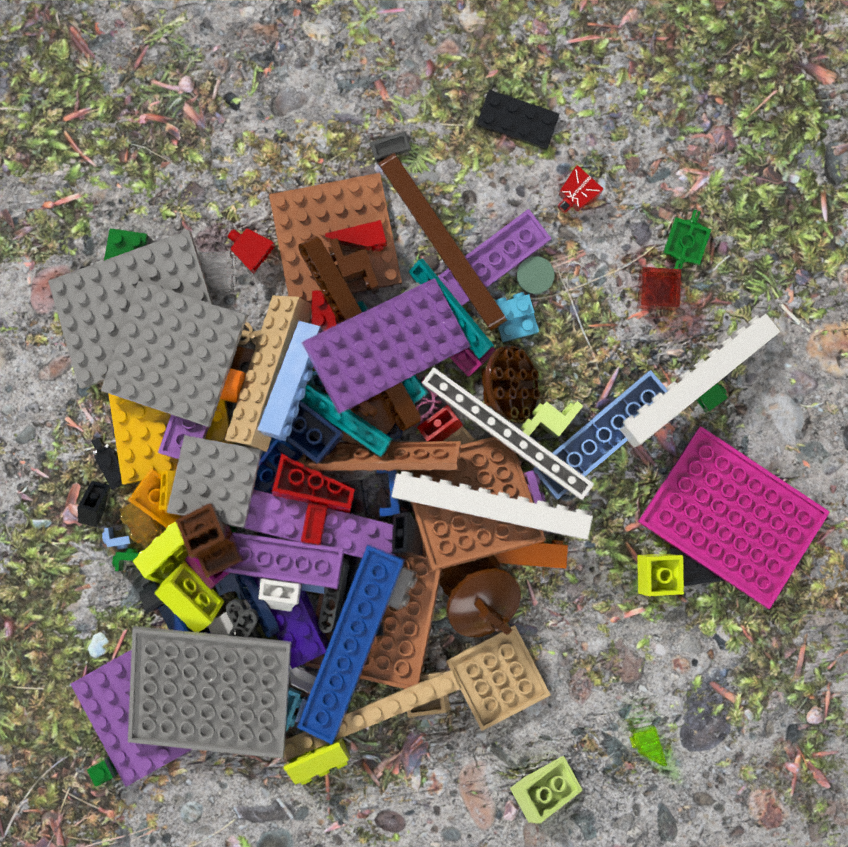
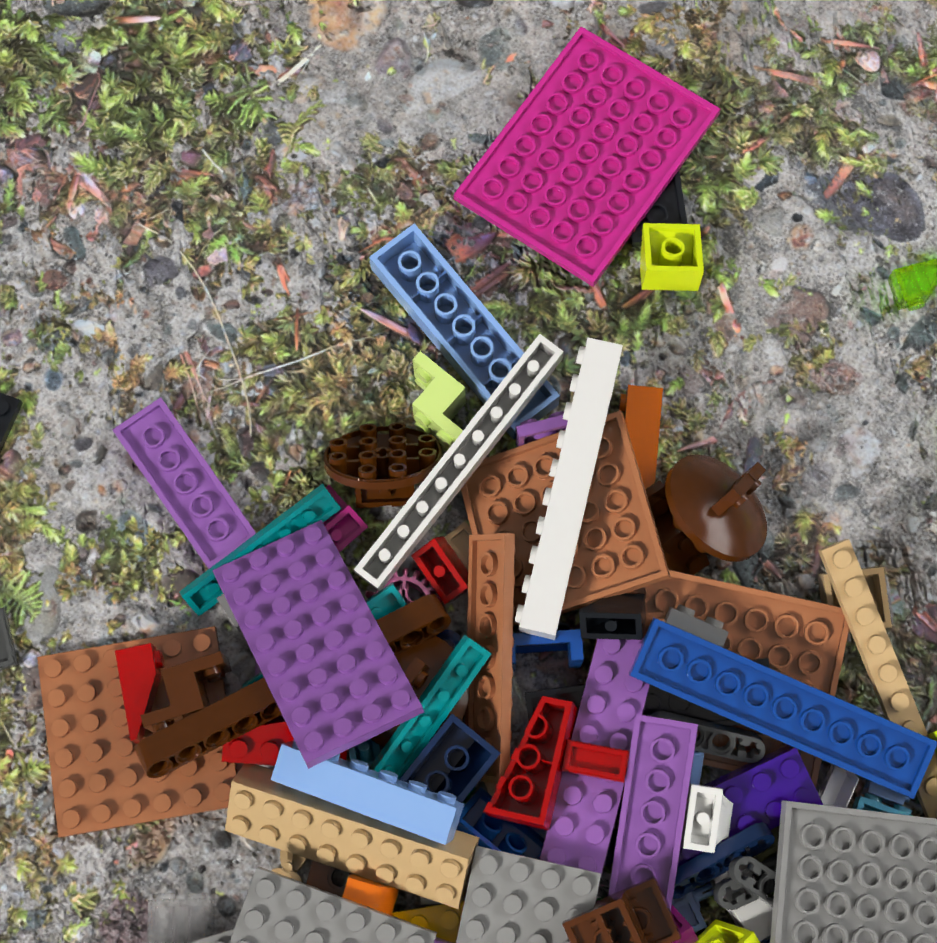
camera: 90 degrees left, 10 degrees down
(250, 248) = (144, 868): red torso -> none
(442, 242) = (153, 560): reddish brown beam -> none
(498, 678) = (827, 494): tan plate -> none
(519, 317) = (278, 456): medium azure plate -> none
(535, 275) = (215, 424): sand green tile -> none
(578, 191) = (89, 356): red torso -> none
(659, 288) = (247, 243): clear red piece -> none
(687, 241) = (177, 205): green plate -> none
(697, 382) = (389, 191): white brick -> none
(712, 397) = (411, 178): green brick -> none

